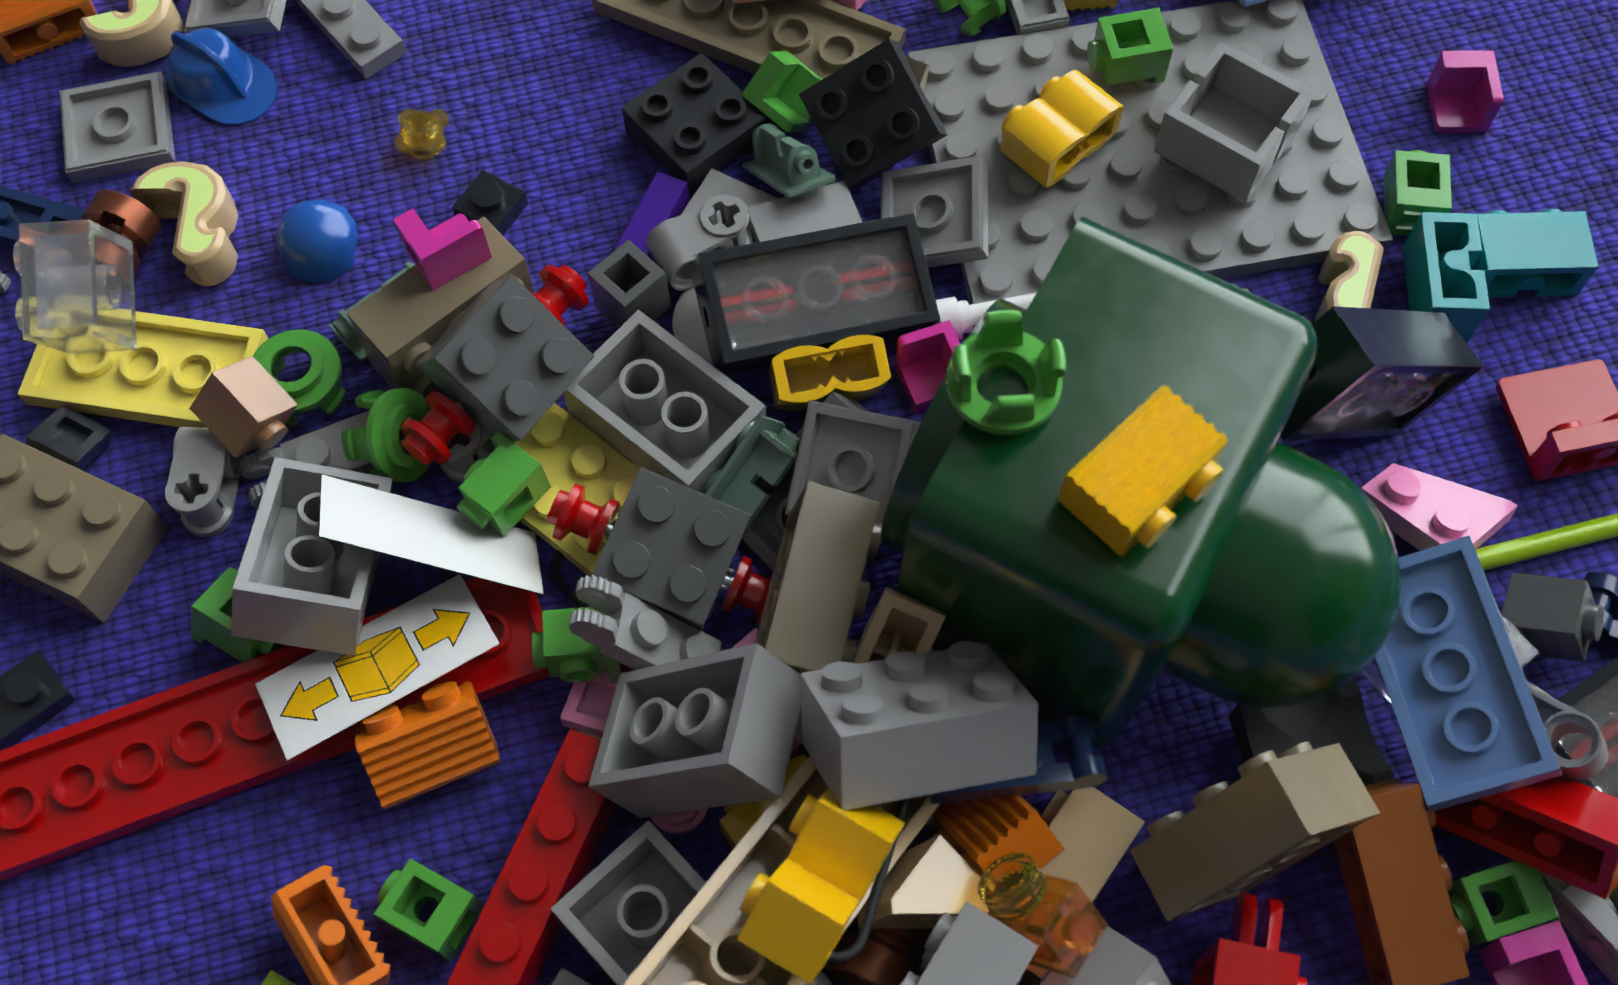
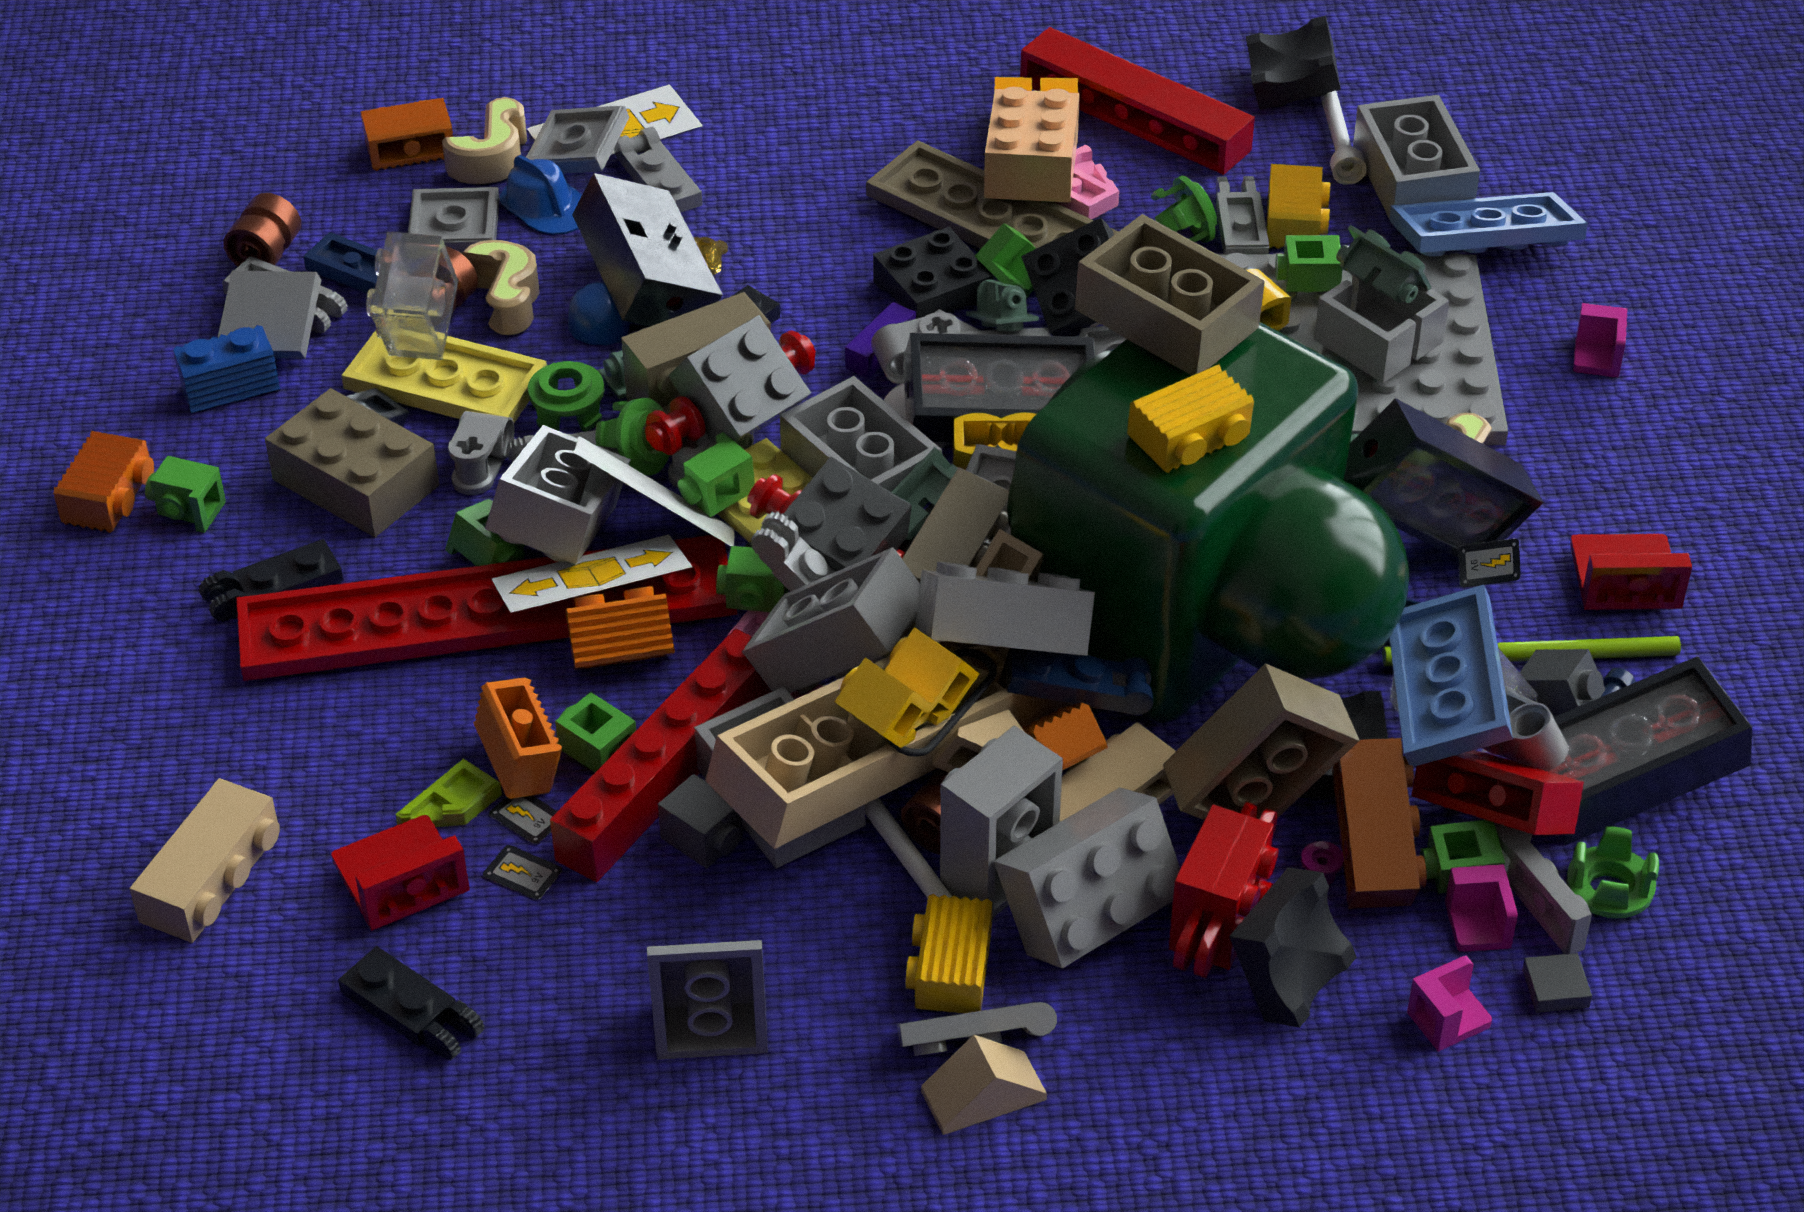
camera: 10 degrees right, 20 degrees down
(244, 407) = (523, 397): medium nougat brick -> none
(350, 152) = (643, 250): none -> black brick
(445, 249) = (710, 304): dark pink panel -> none
(629, 283) = (849, 358): dark grey brick -> none
(1006, 346) = (1106, 351): bright green piece -> none
(1012, 886) = (1062, 740): clear yellow tile -> none
(1062, 926) = (1088, 776): clear orange brick -> none
(1071, 265) = (1169, 295): none -> dark tan brick
(1252, 66) = (1398, 272): none -> sand green hinge
(1342, 926) = (1323, 857): none -> magenta piece
(1414, 185) = (1535, 402): bright green brick -> none
(1418, 437) = (1489, 562): none -> sticker
(1435, 510) = (1512, 617): bright pink wing -> none
(1439, 269) = (1543, 447): teal brick -> none
(1536, 252) = (1621, 453): brick -> none

